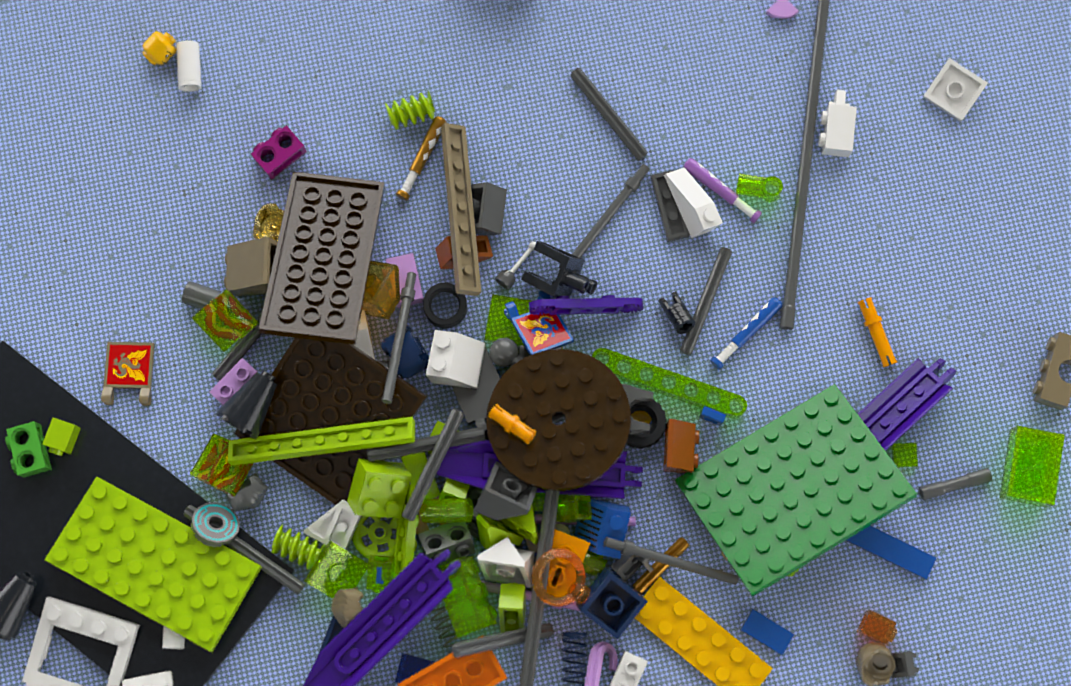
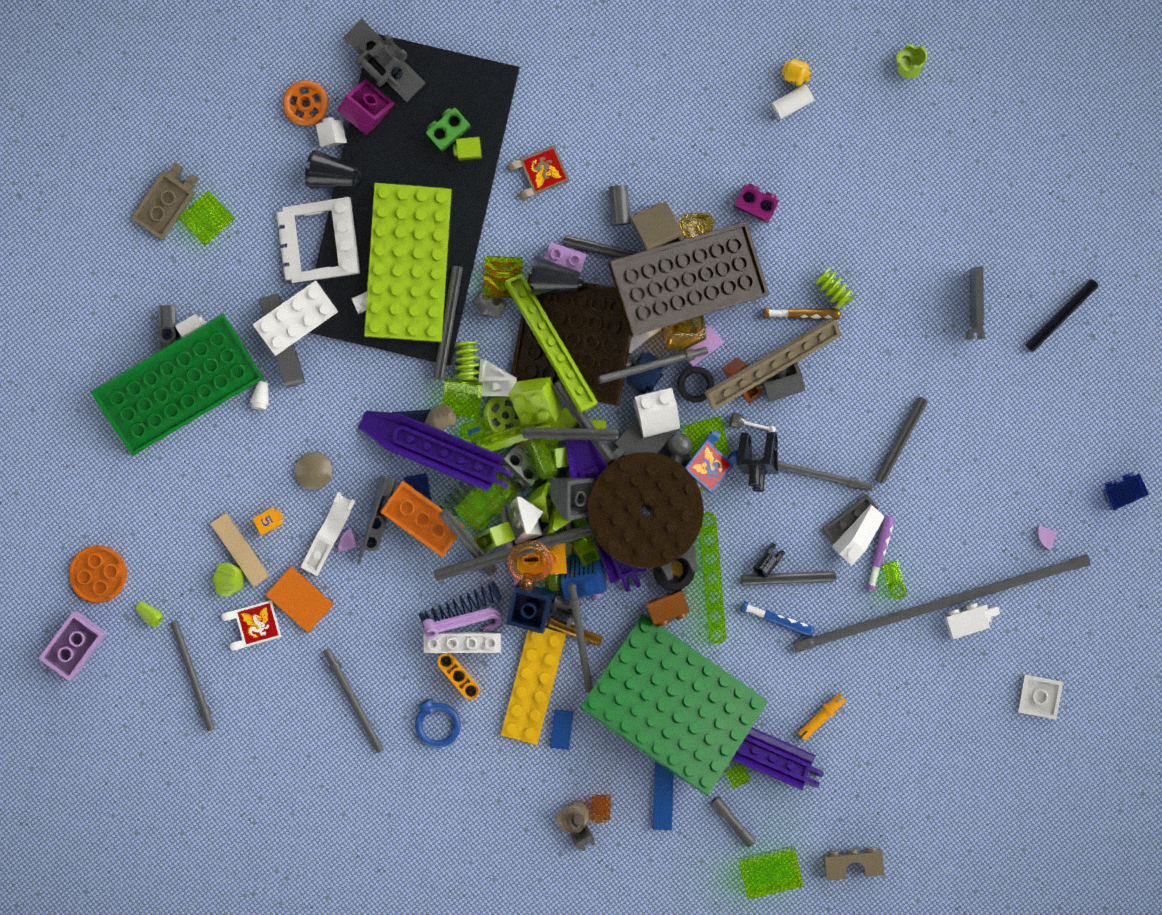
camera: 65 degrees right, 10 degrees up
(215, 513) = (465, 294): tile -> none
(225, 320) = (609, 227): clear neon green slope -> none
(512, 424) = (625, 478): light orange pin -> none
(605, 305) = (750, 505): dark purple piece -> none
(712, 416) = (702, 621): blue tile -> none

